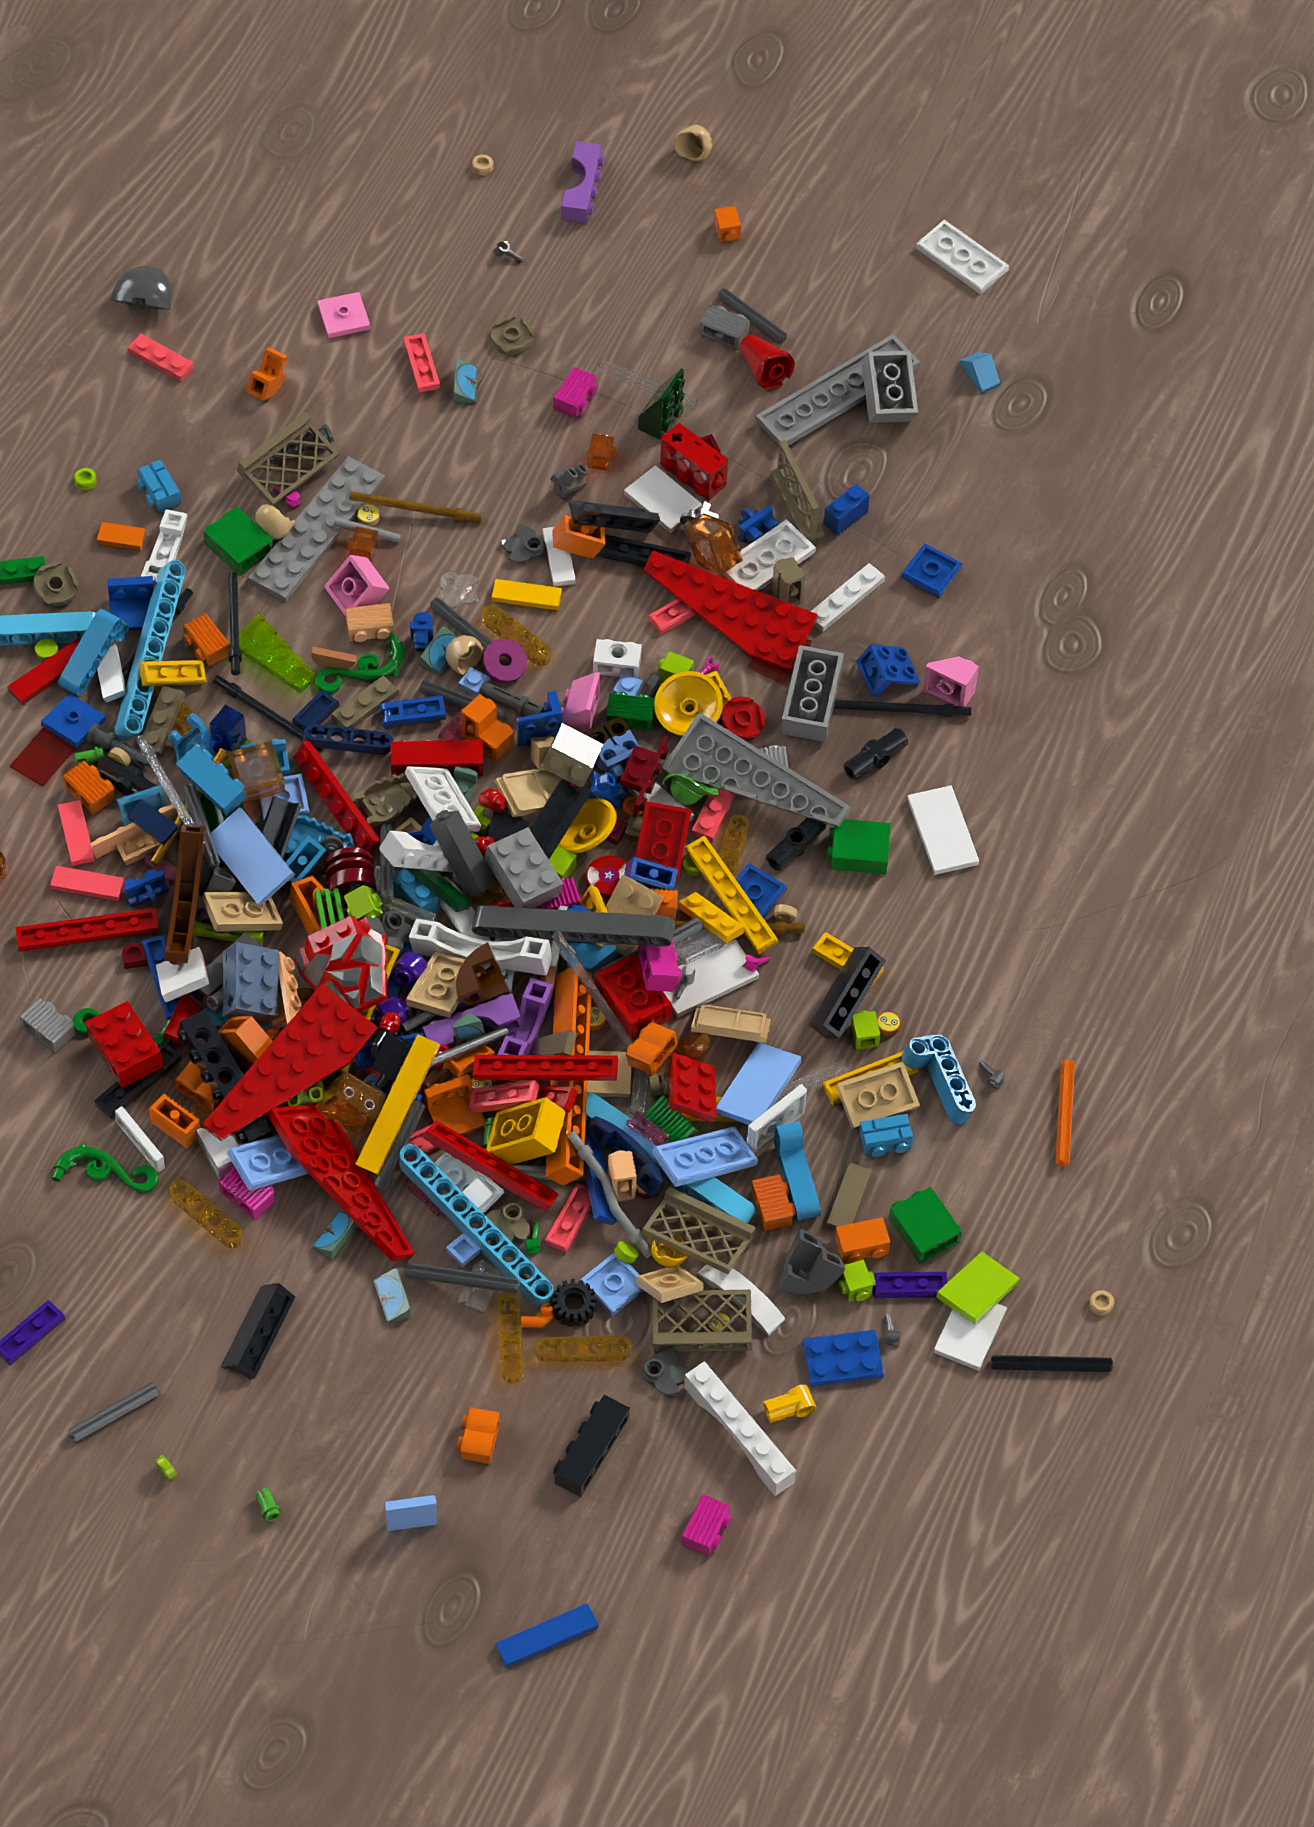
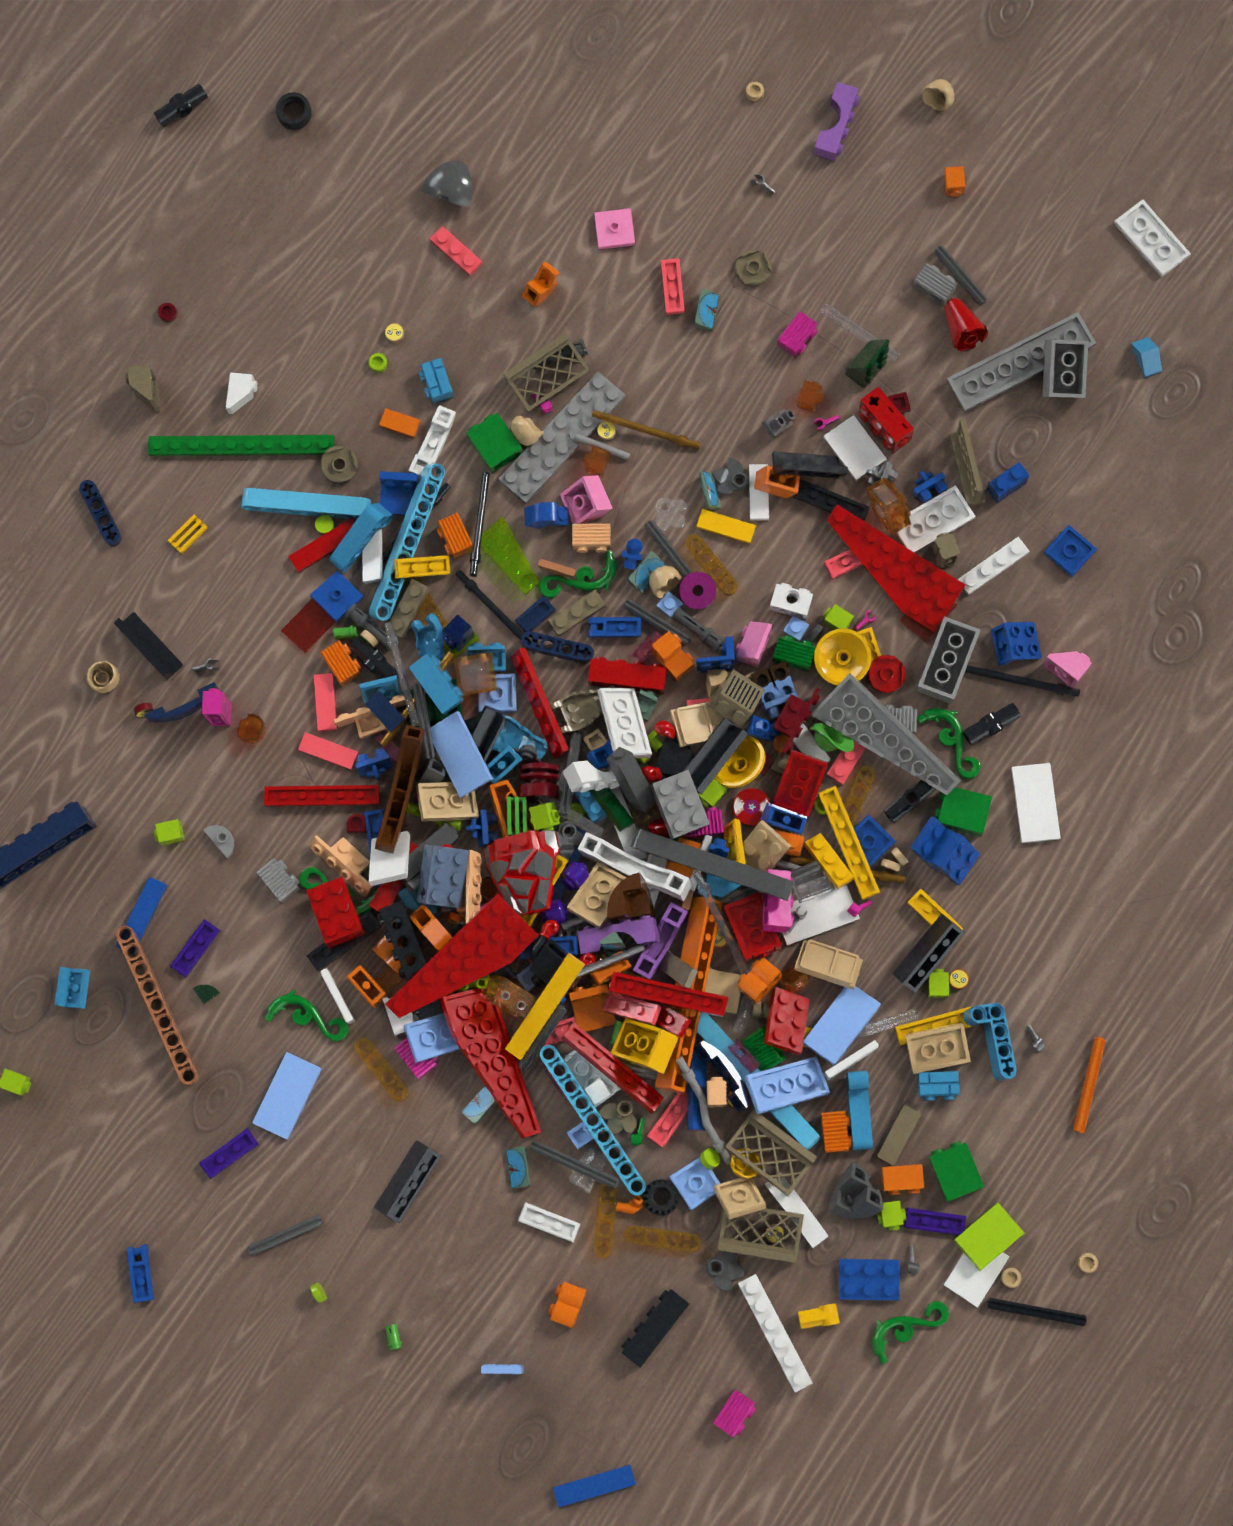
camera: 20 degrees right, 20 degrees up
(92, 1258) = (287, 1095): none -> light blue tile
(100, 446) = (394, 333): none -> tile
(124, 988) = (344, 860): none -> light nougat bracket
(287, 938) = (479, 828): none -> blue hips
(310, 602) = (546, 514): none -> blue brick
(441, 1352) = (549, 1222): none -> white tile
(500, 560) = (709, 490): none -> slope
(622, 477) = (825, 422): none -> dark pink hand
(794, 901) = (899, 856): none -> tan tile
(826, 779) = (946, 740): none -> green plant
(846, 886) = (945, 851): none -> blue bracket
(897, 1398) = (906, 1321): none -> green plant
(1013, 1332) = (1010, 1277): none -> tan tile

